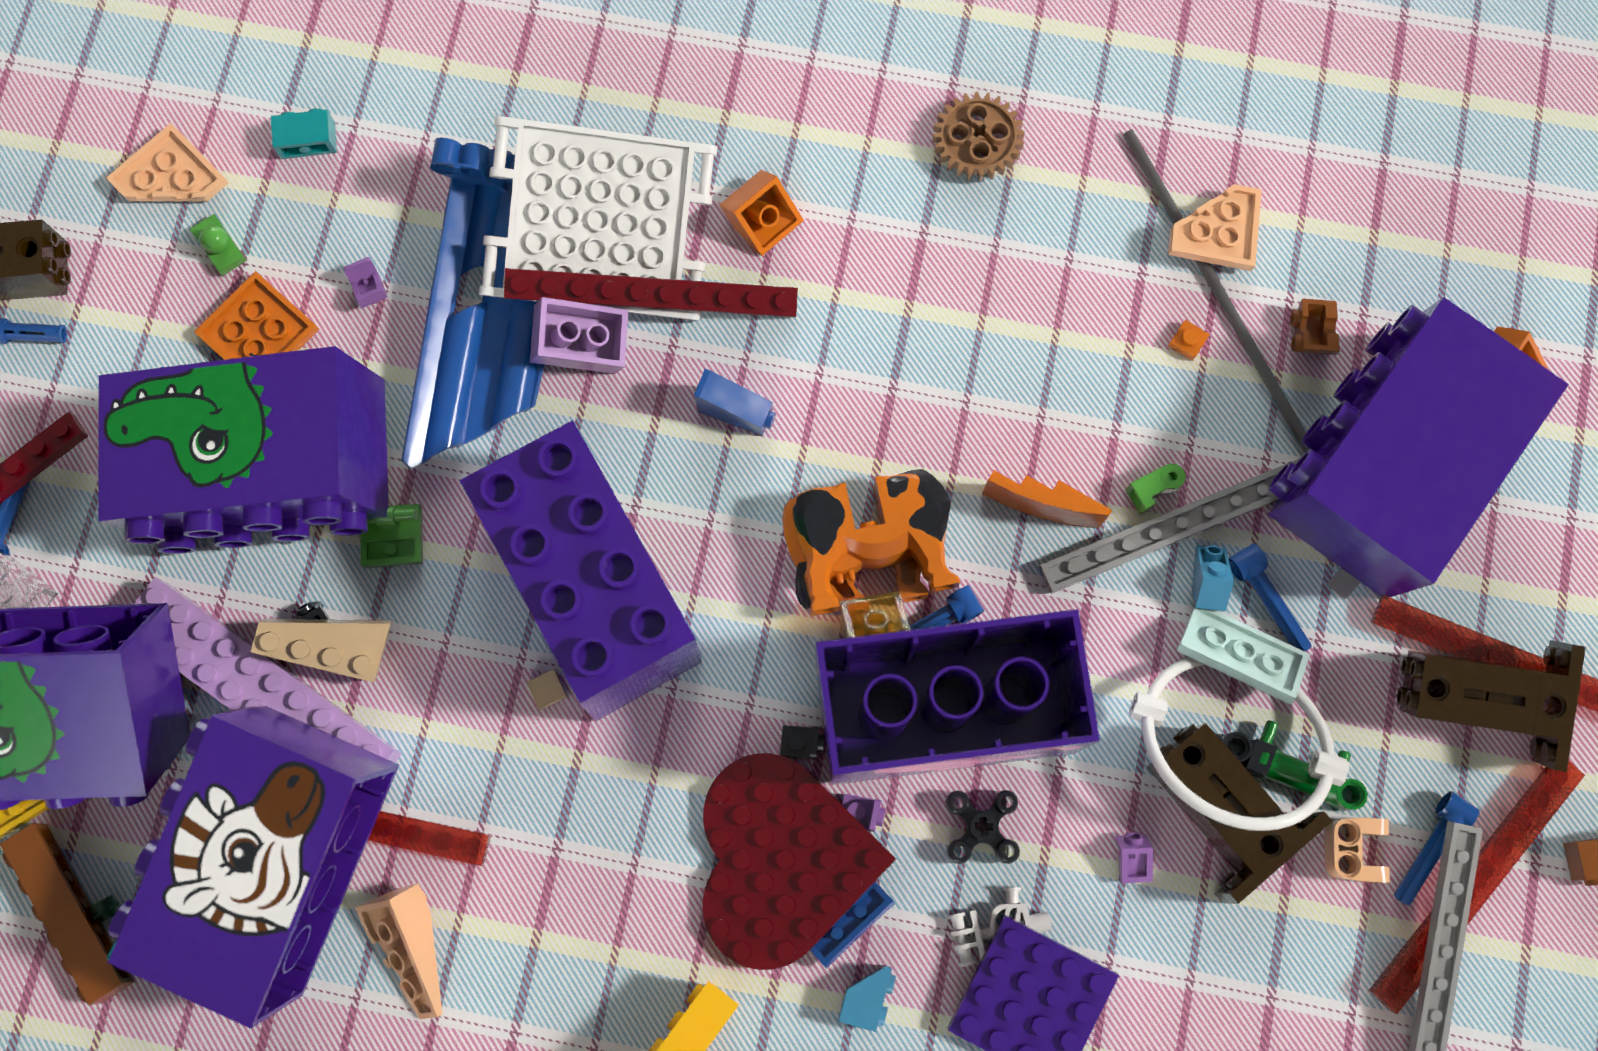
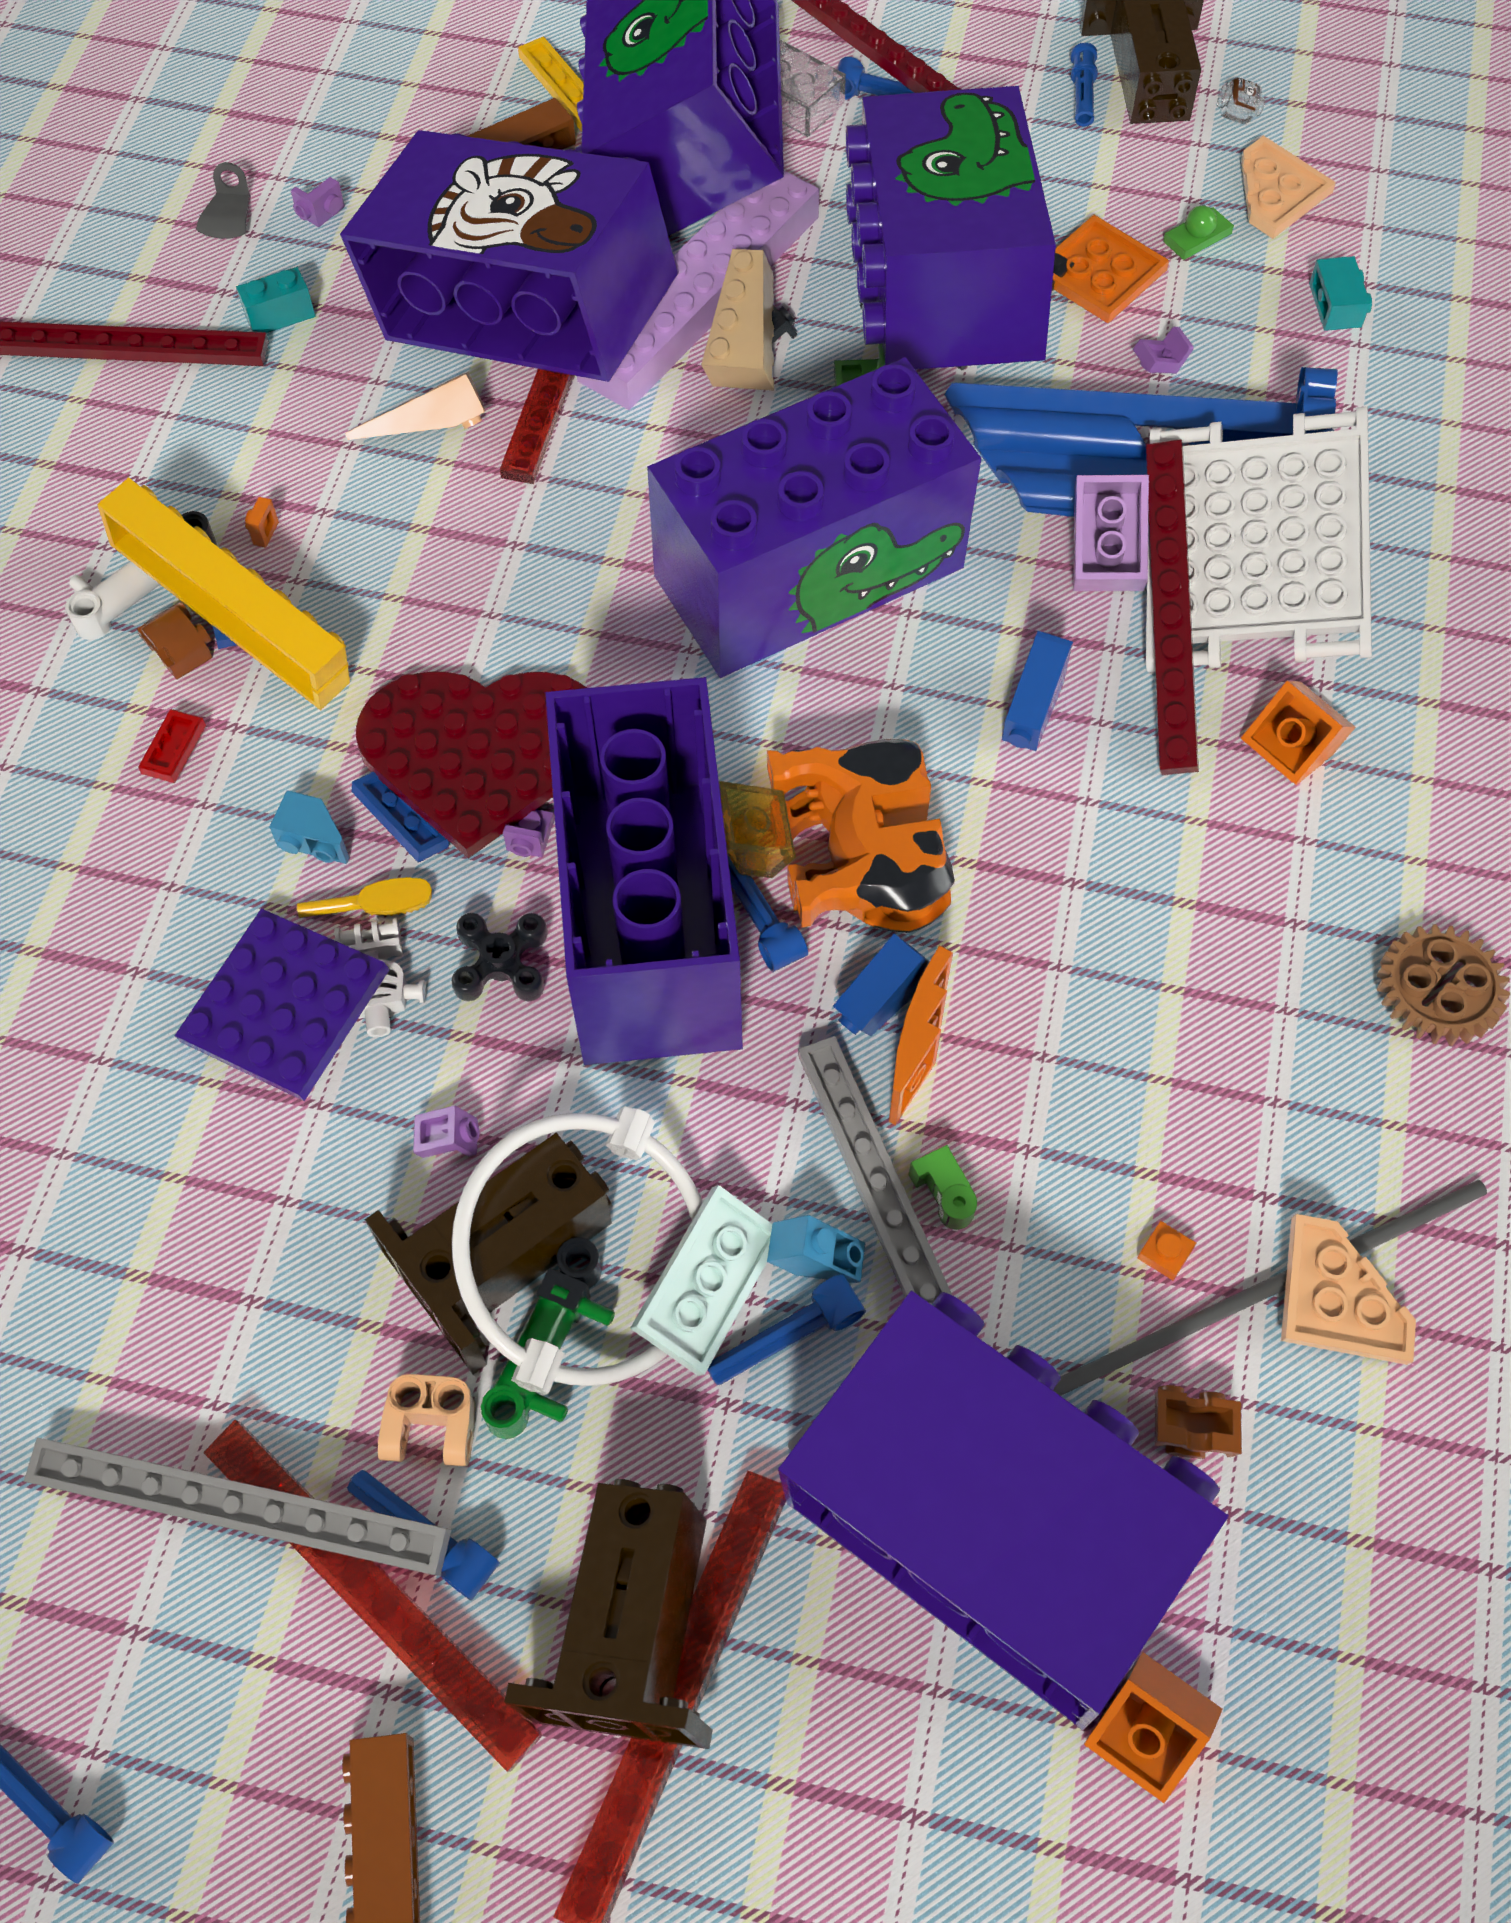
camera: 90 degrees right, 15 degrees down
(56, 193) = (1240, 100): none -> clear head
(928, 930) = (379, 898): none -> yellow piece
(999, 525) = (881, 987): none -> blue slope

